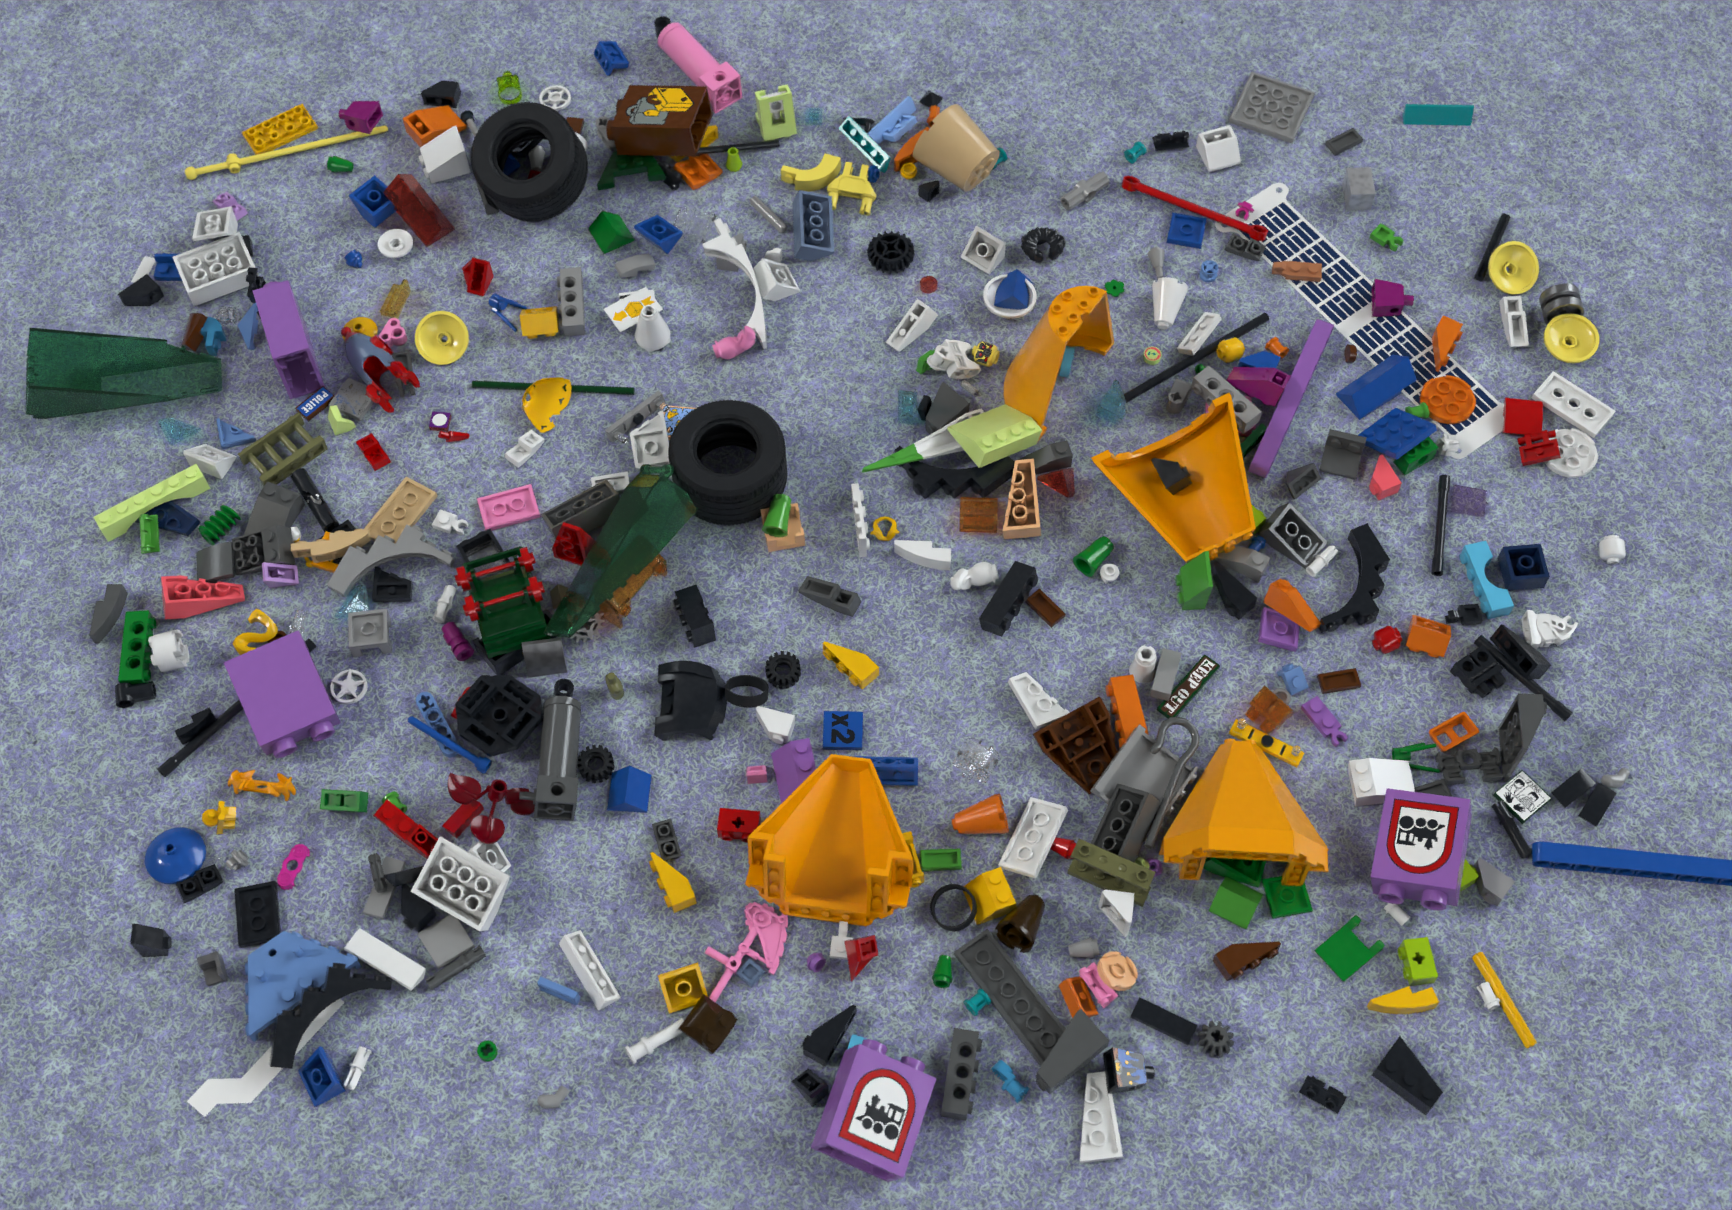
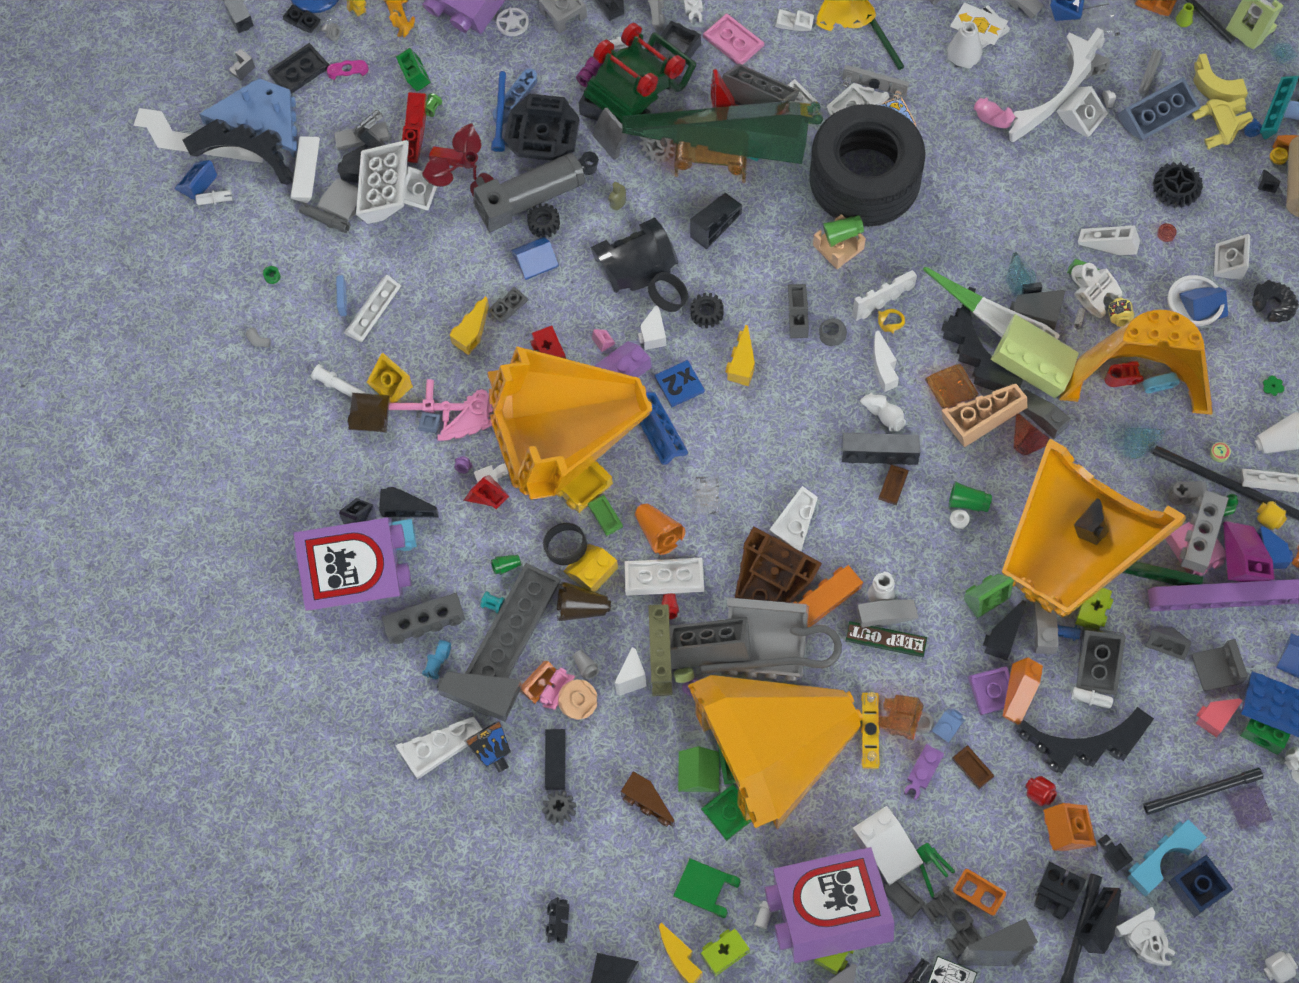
camera: 65 degrees right, 5 degrees up
(871, 588) = (833, 340): none -> dark grey piece

